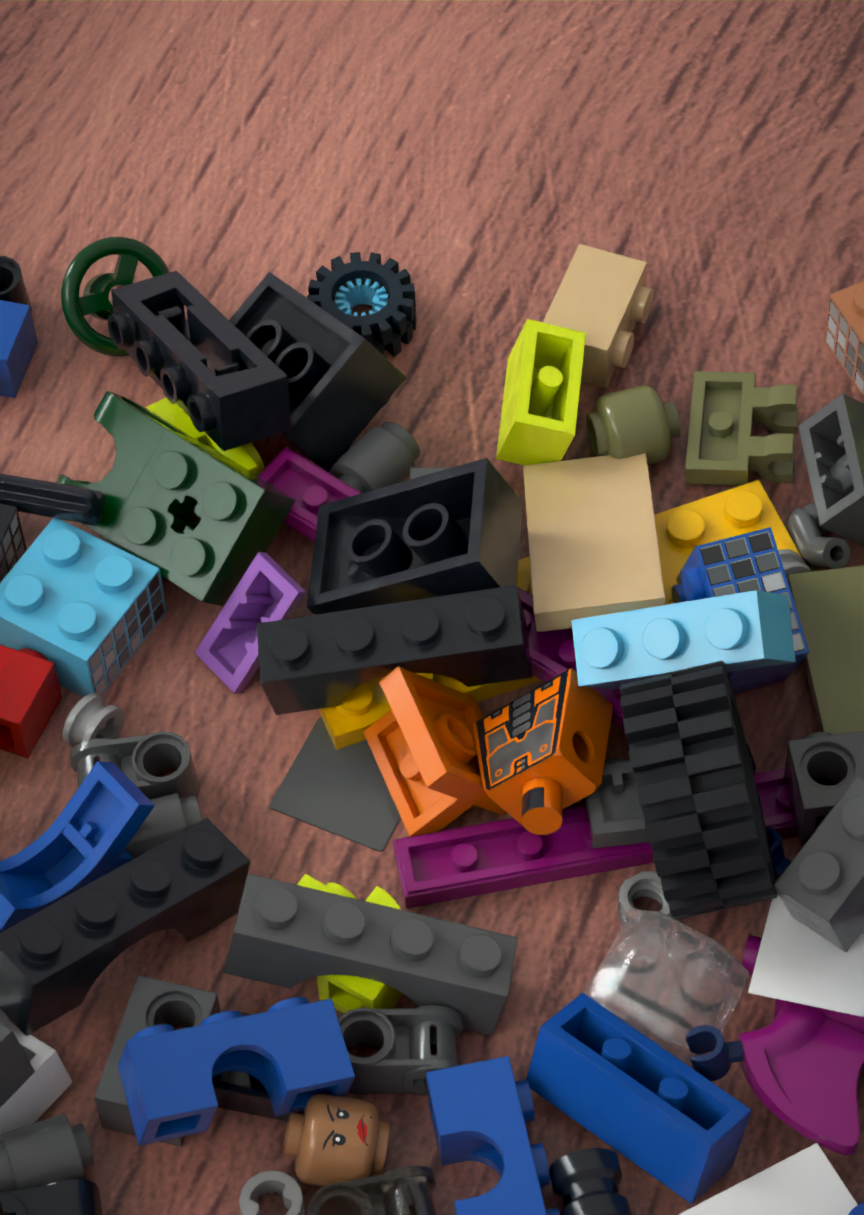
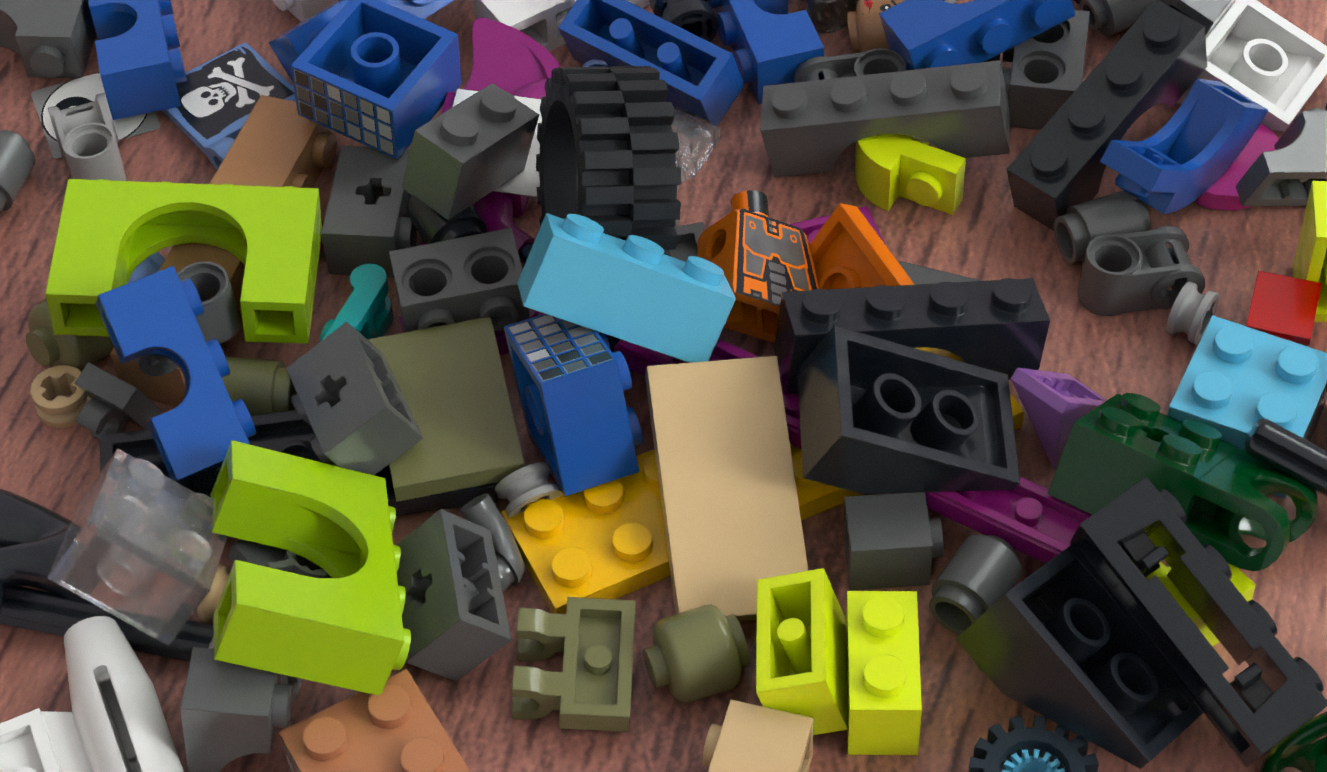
camera: 175 degrees right, 5 degrees down
(470, 390) = (883, 673): none -> neon yellow brick

